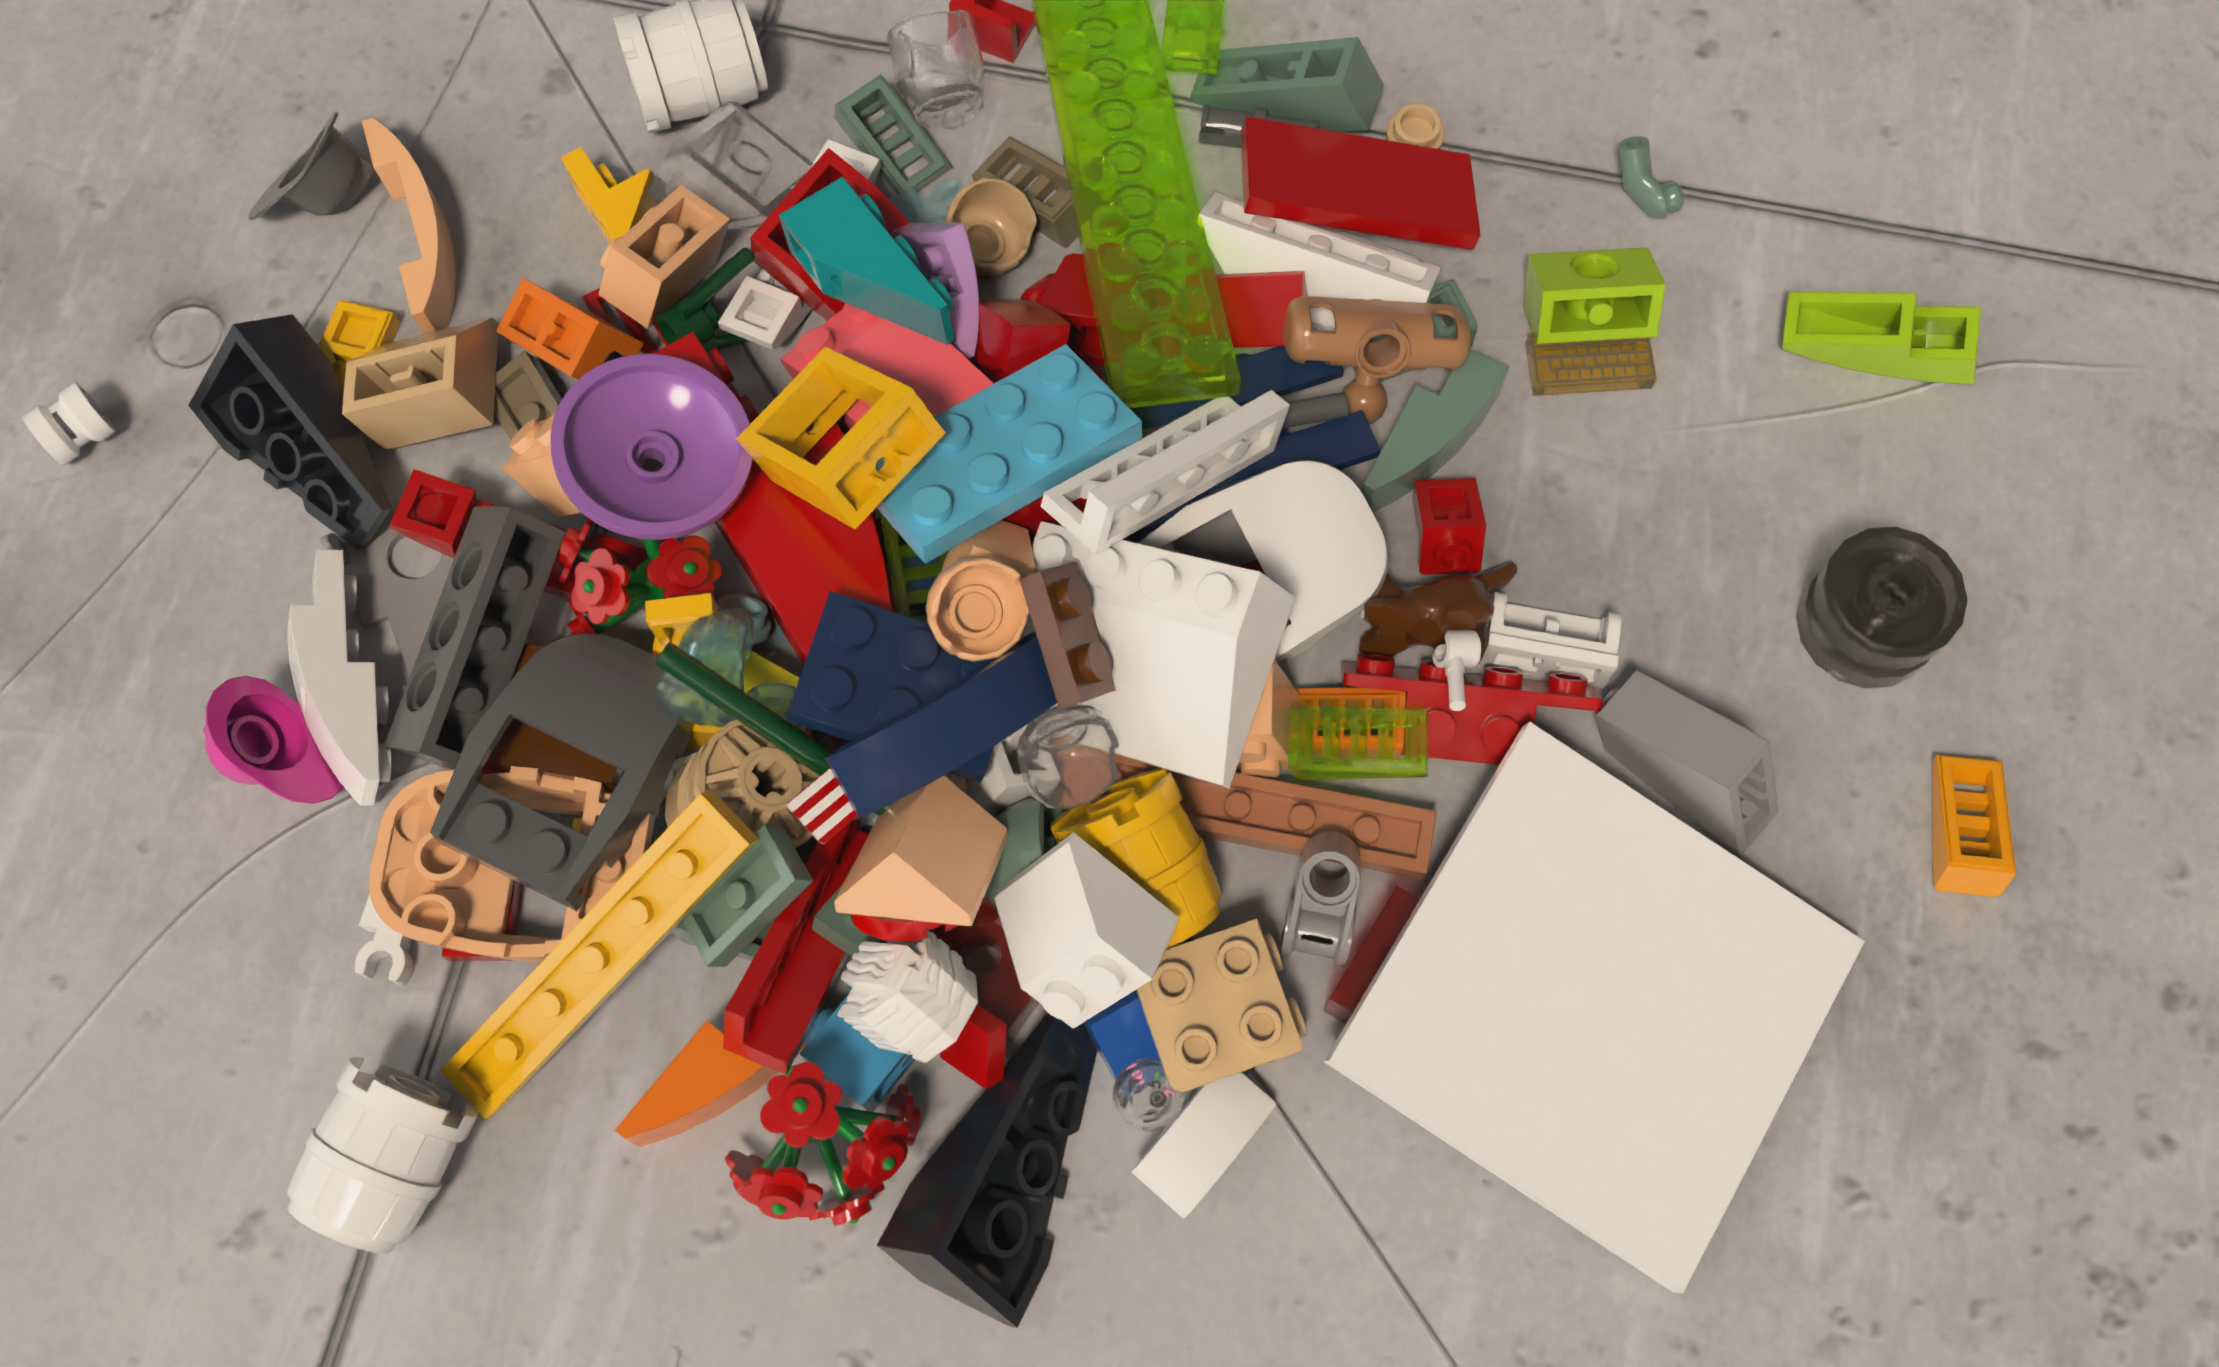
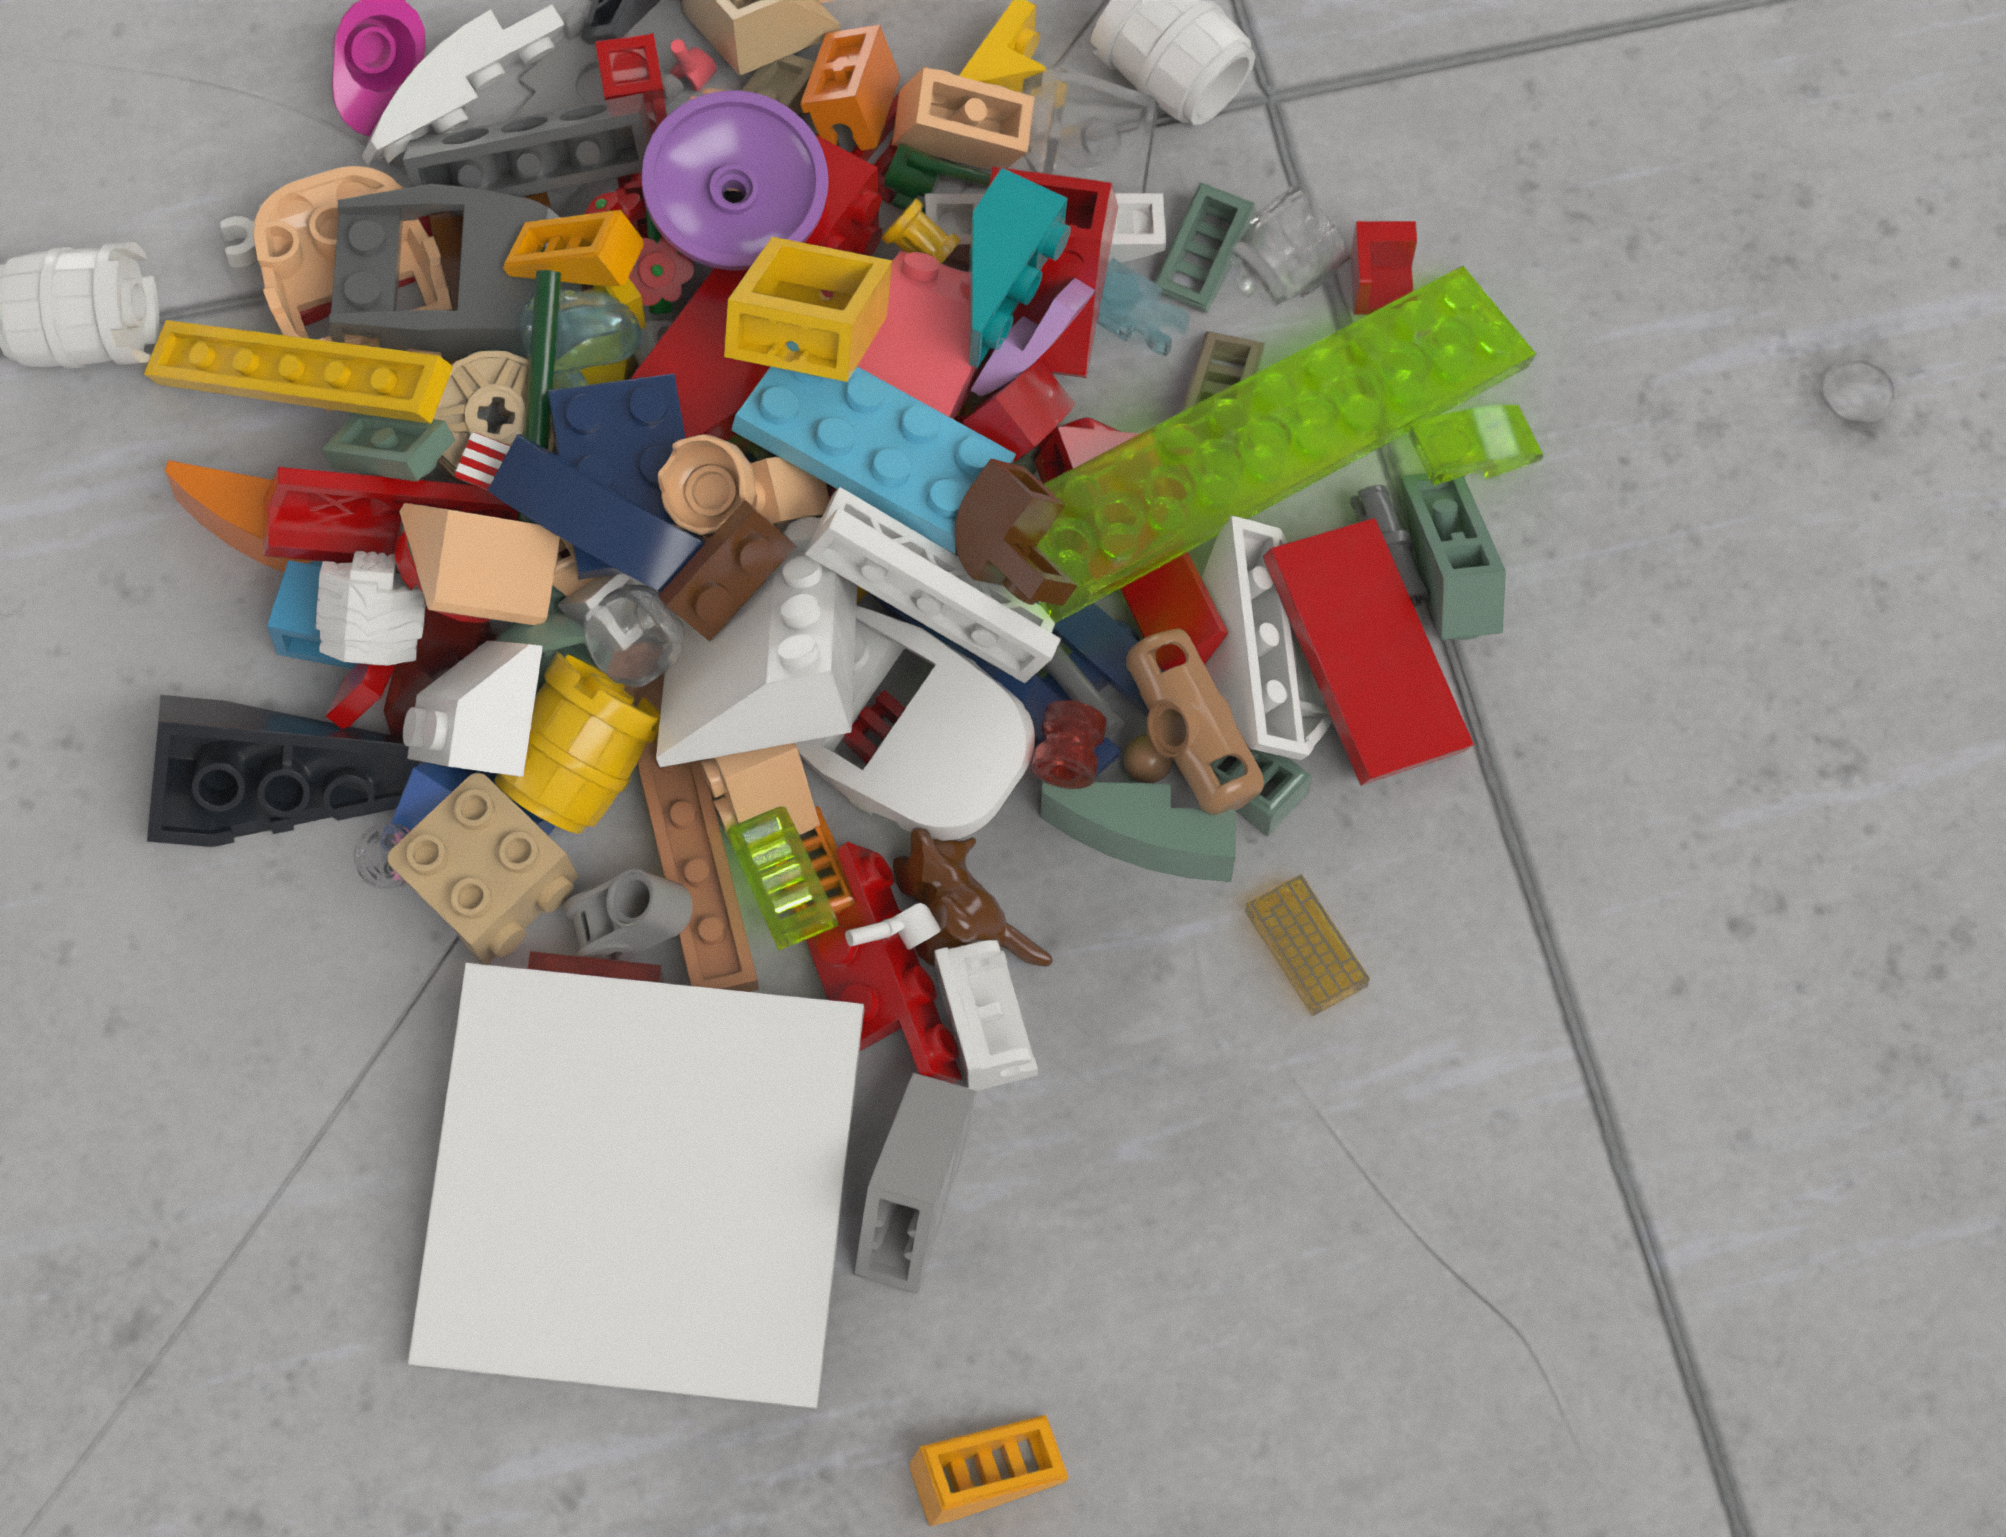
camera: 60 degrees right, 5 degrees down
(451, 462) = (692, 64): none -> coral hand
(660, 603) = (584, 248): none -> light orange slope
(768, 338) = (918, 233): none -> yellow bush
(808, 1113) = (222, 643): red plant -> none
(996, 223) = (1144, 363): tan hair -> none
(1152, 389) = (1000, 531): none -> reddish brown brick
(1203, 1141) = (368, 915): white slope -> none
(1354, 440) = (1069, 745): none -> clear red wheel
(1417, 126) = (1475, 687): tan plate -> none
(1449, 526) = (1055, 880): red bracket -> none
(1593, 295) = (1364, 908): lime brick -> none
(1641, 185) = (1532, 912): sand green arm -> none
(1881, 607) = (1125, 1299): clear smoke wheel -> none
(1884, 335) = (1482, 1205): lime slope -> none

